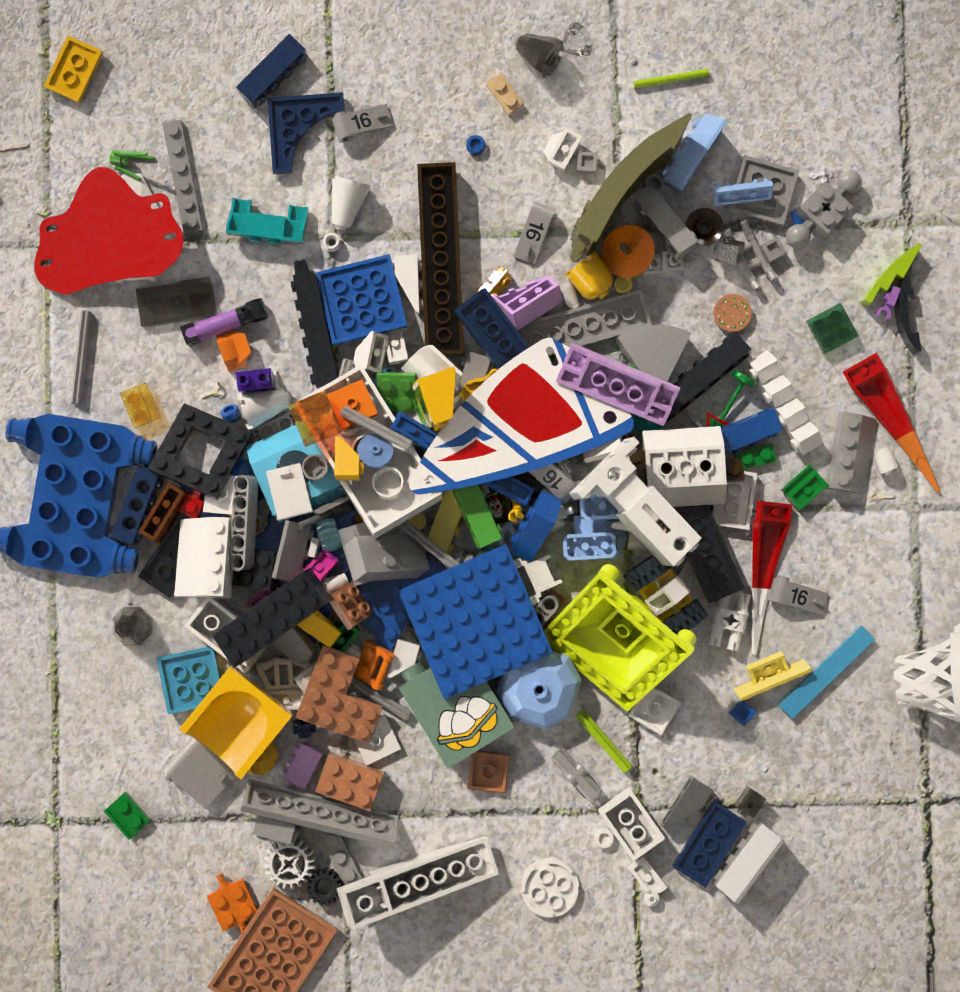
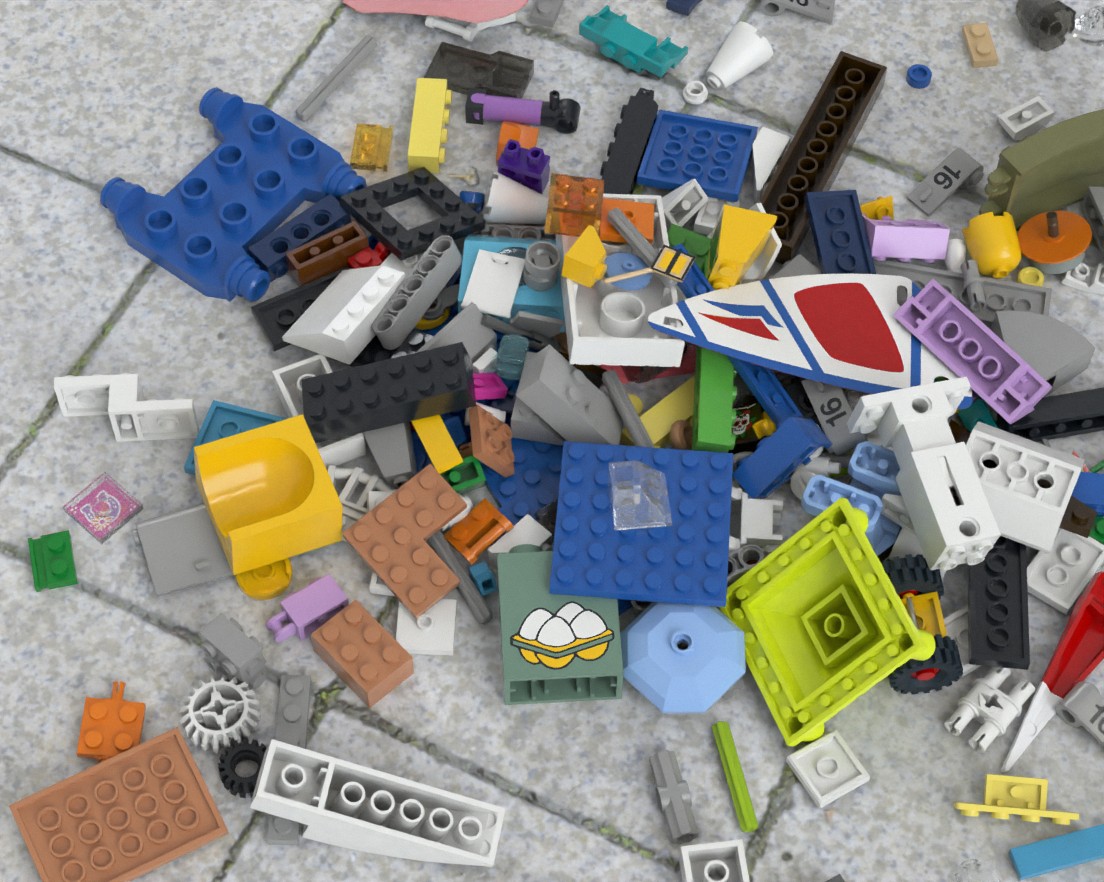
camera: 25 degrees right, 30 degrees down
(106, 695) = (125, 404): none -> white bracket
(132, 625) = (206, 354): clear smoke cone -> none
(134, 764) = (103, 507): none -> clear tile
(167, 367) = (428, 124): none -> light yellow brick
(303, 728) = (344, 561): dark blue gear -> none
(319, 813) = (302, 661): light grey plate -> none
(392, 692) = (483, 578): none -> dark azure piece
(402, 435) = (668, 263): none -> piece
(463, 534) = (681, 435): none -> medium nougat piece
(468, 616) = (638, 496): none -> clear slope
(488, 771) = (553, 738): nougat tile -> none
(592, 317) = (973, 285): none -> light grey pin
(667, 596) = (927, 609): white slope -> none
(742, 712) = (951, 836): blue tile -> none

